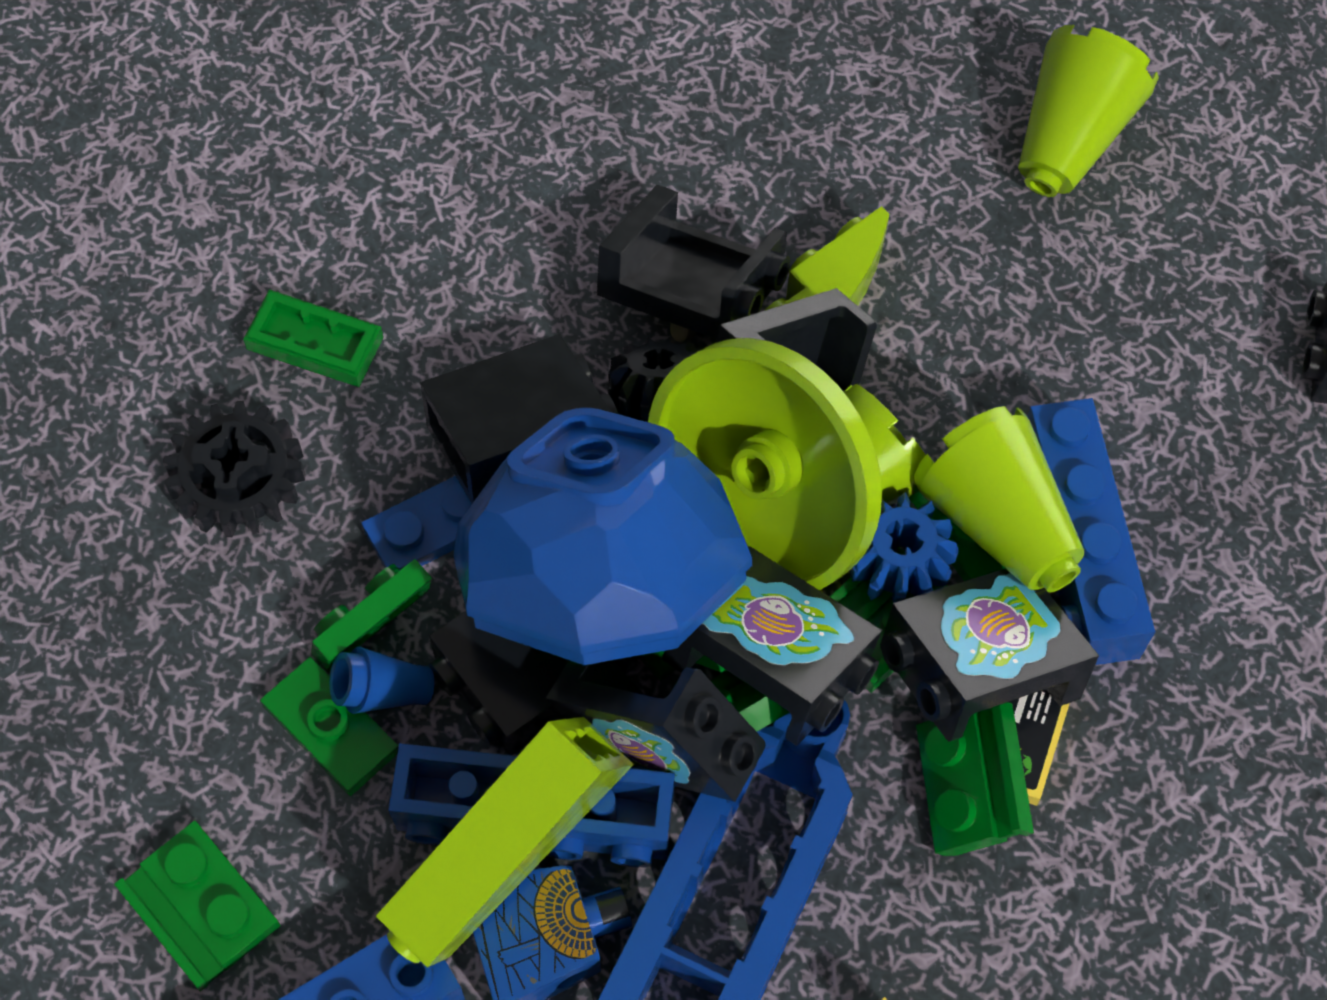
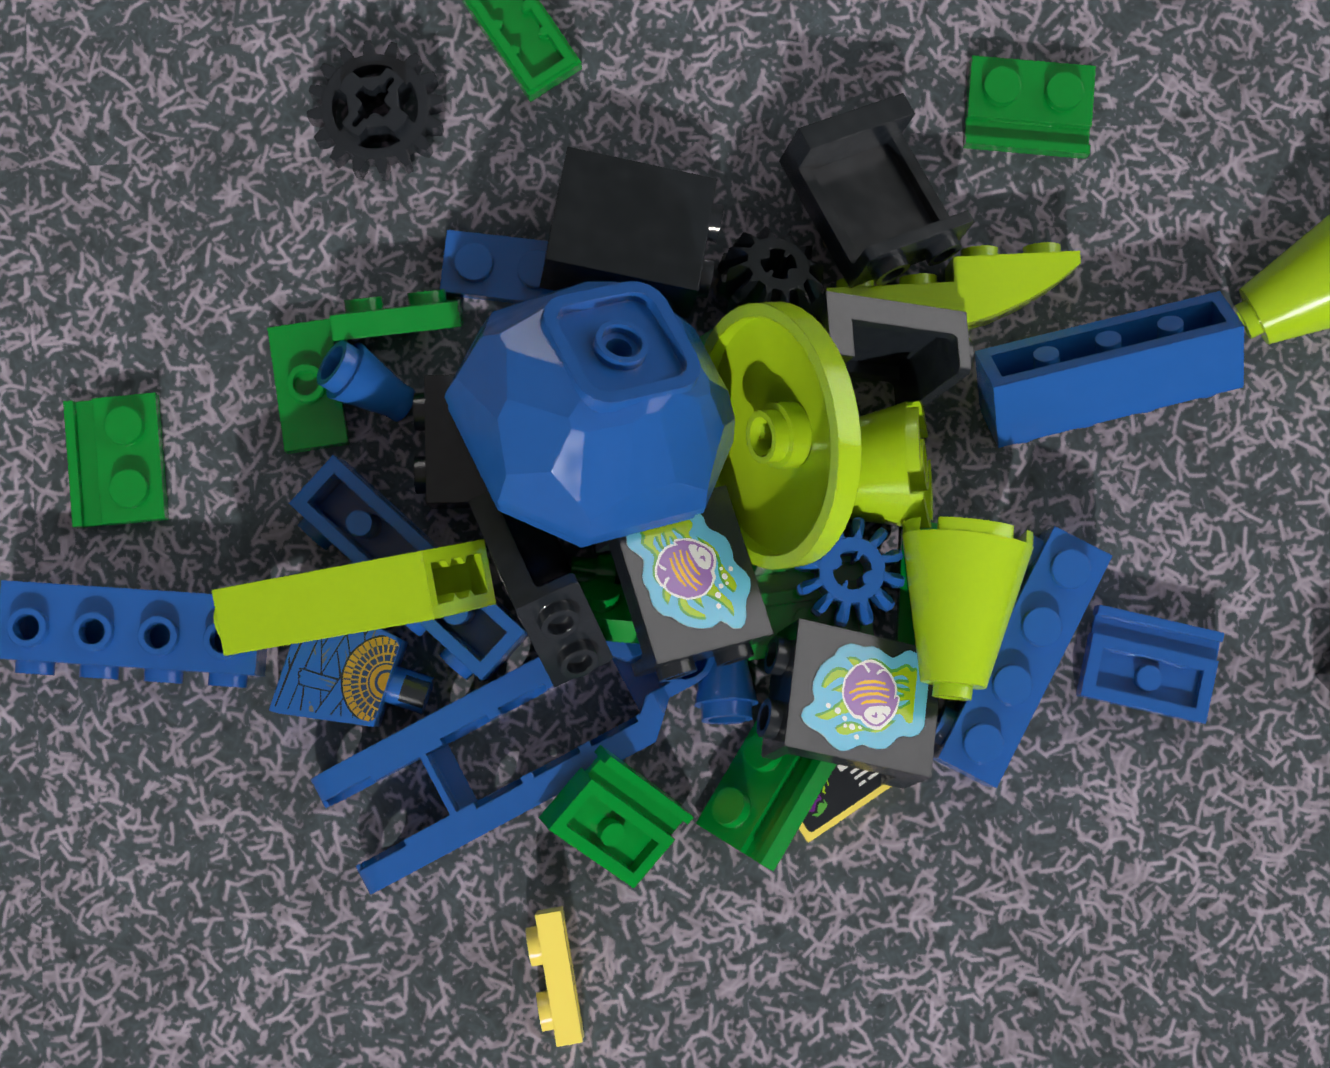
camera: 30 degrees right, 20 degrees up
(756, 147) = (1029, 107): none -> green plate
(867, 885) = (615, 817): none -> green plate
(876, 725) = (726, 694): none -> blue cone
(973, 277) = (1110, 369): none -> blue brick
(1185, 472) = (1150, 664): none -> blue plate

